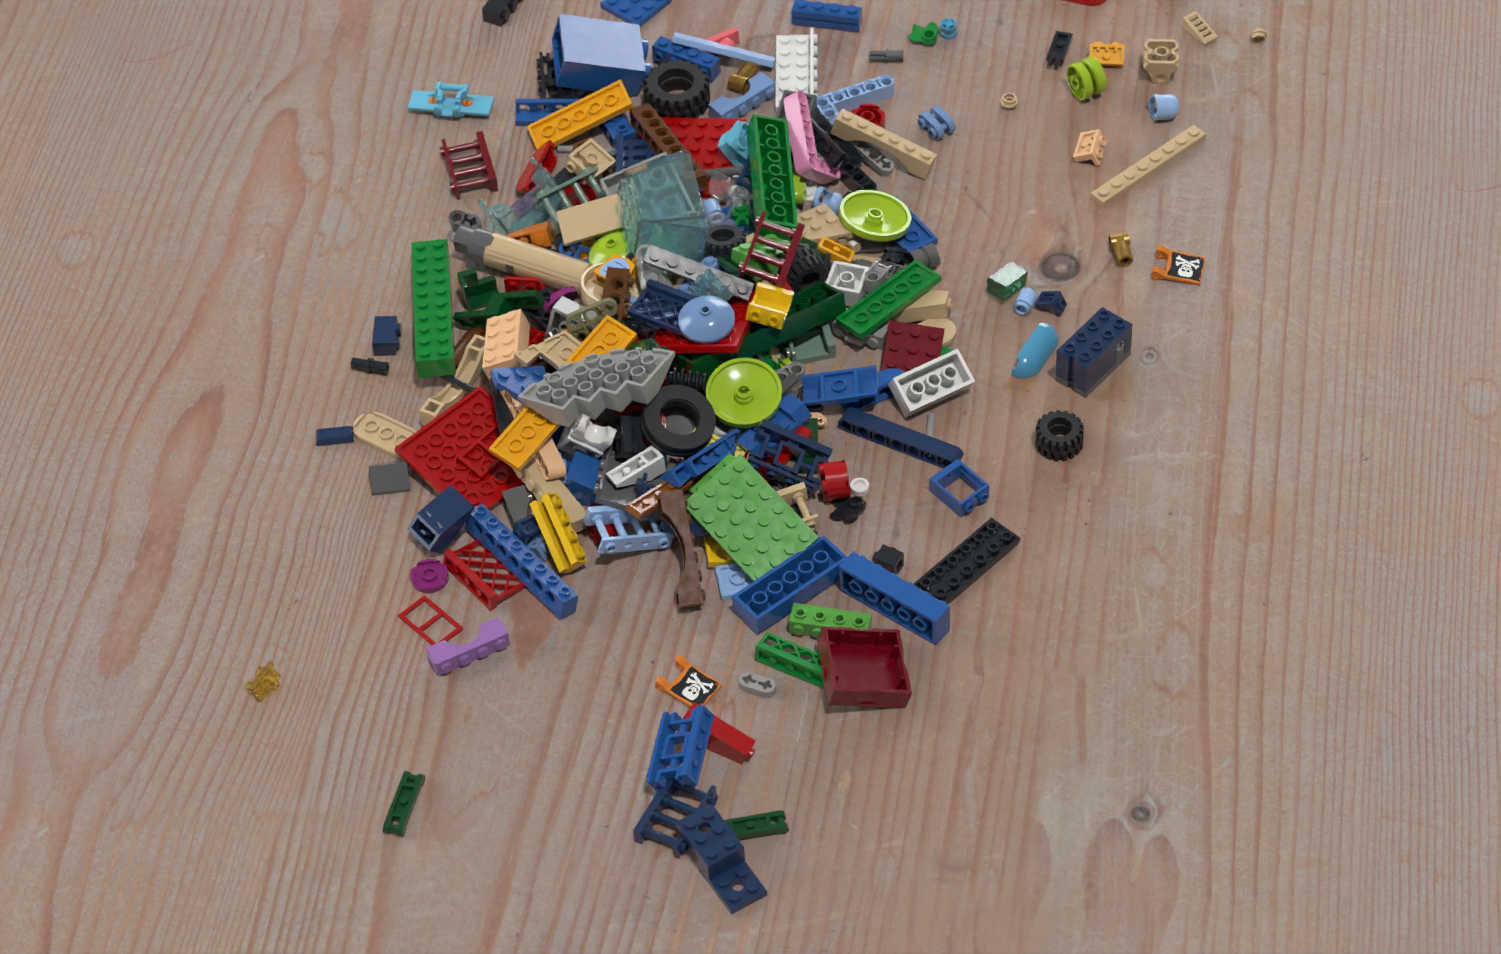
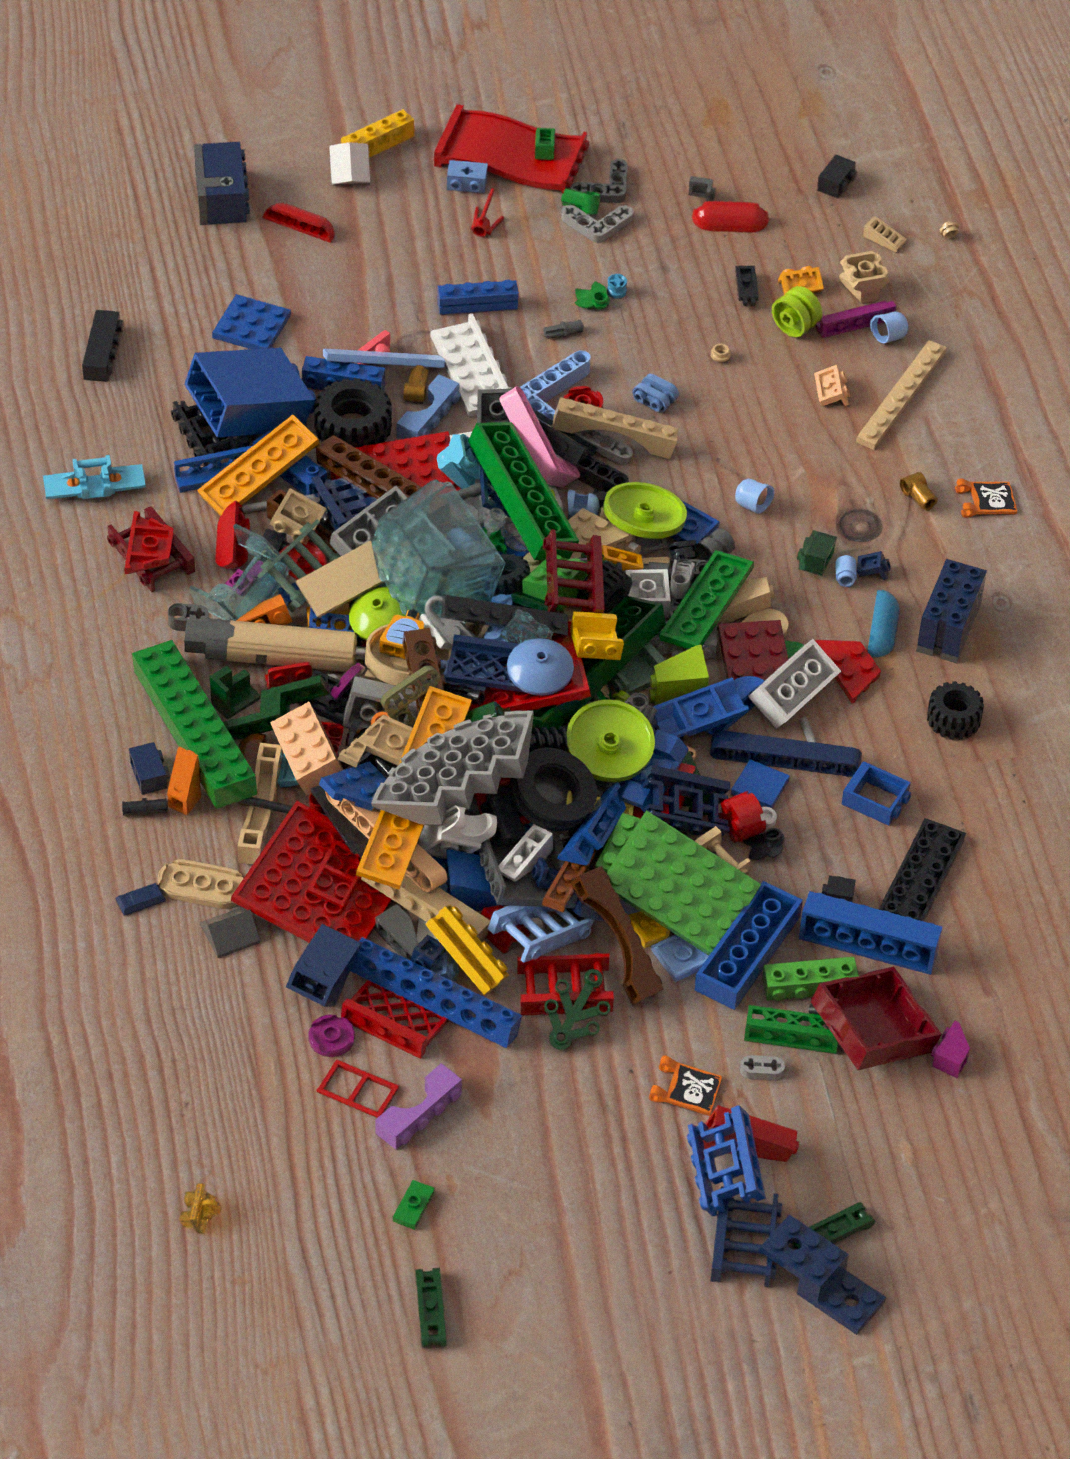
camera: 25 degrees left, 0 degrees up
(402, 352) = (184, 785): none -> orange slope
(429, 721) = (413, 1204): none -> green plate
(463, 160) = (148, 544): none -> red wing
(624, 604) = (574, 1012): none -> dark green plant
(625, 595) = (534, 1003): none -> red fence
(837, 354) = (678, 676): none -> lime slope
(868, 459) = (762, 782): none -> blue tile
(918, 710) = (952, 1052): none -> magenta slope
(971, 221) = (749, 492): none -> light blue helmet
(992, 379) = (855, 663): none -> red wing
(1134, 94) = (853, 318): none -> magenta fence

